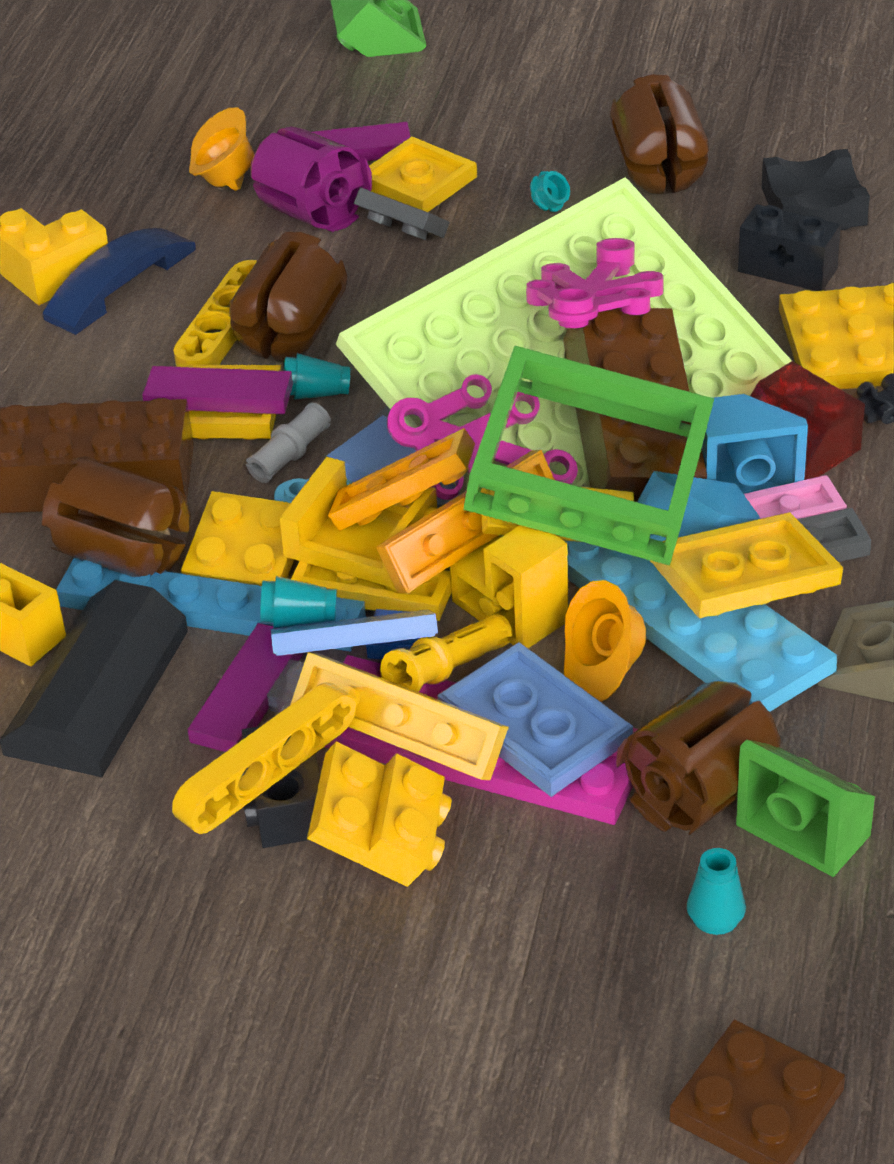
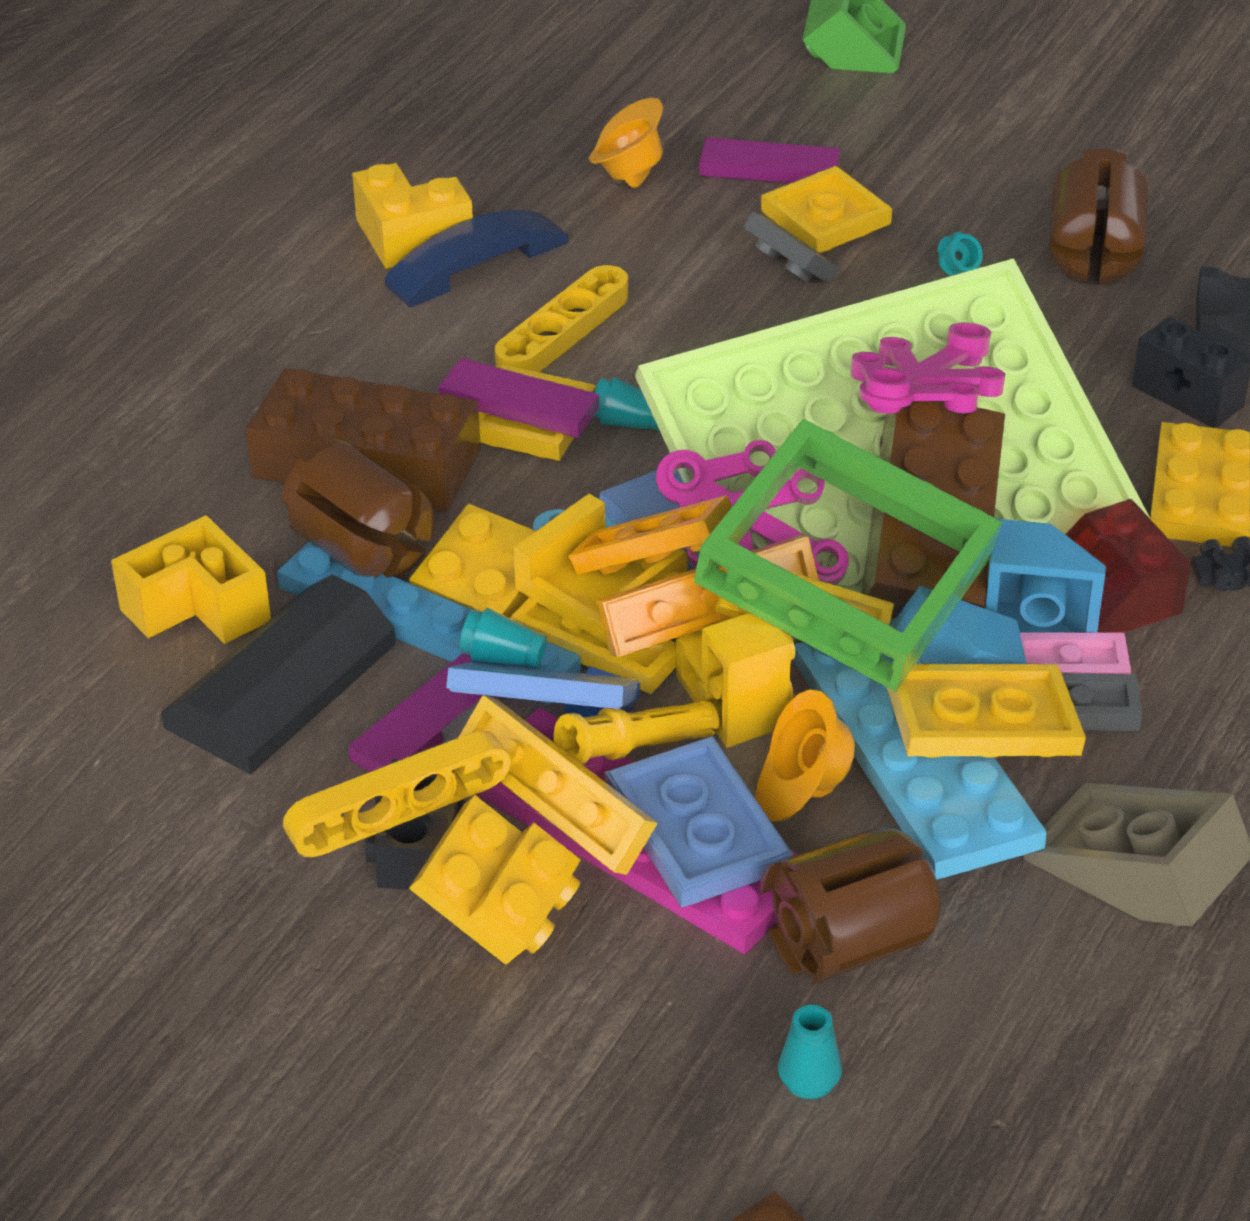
camera: 15 degrees right, 0 degrees up
(287, 297) = (628, 313): reddish brown cylinder -> none
(288, 442) = (572, 469): light grey pin -> none
(310, 177) = (707, 187): magenta cylinder -> none
(801, 807) = (939, 983): bright green slope -> none

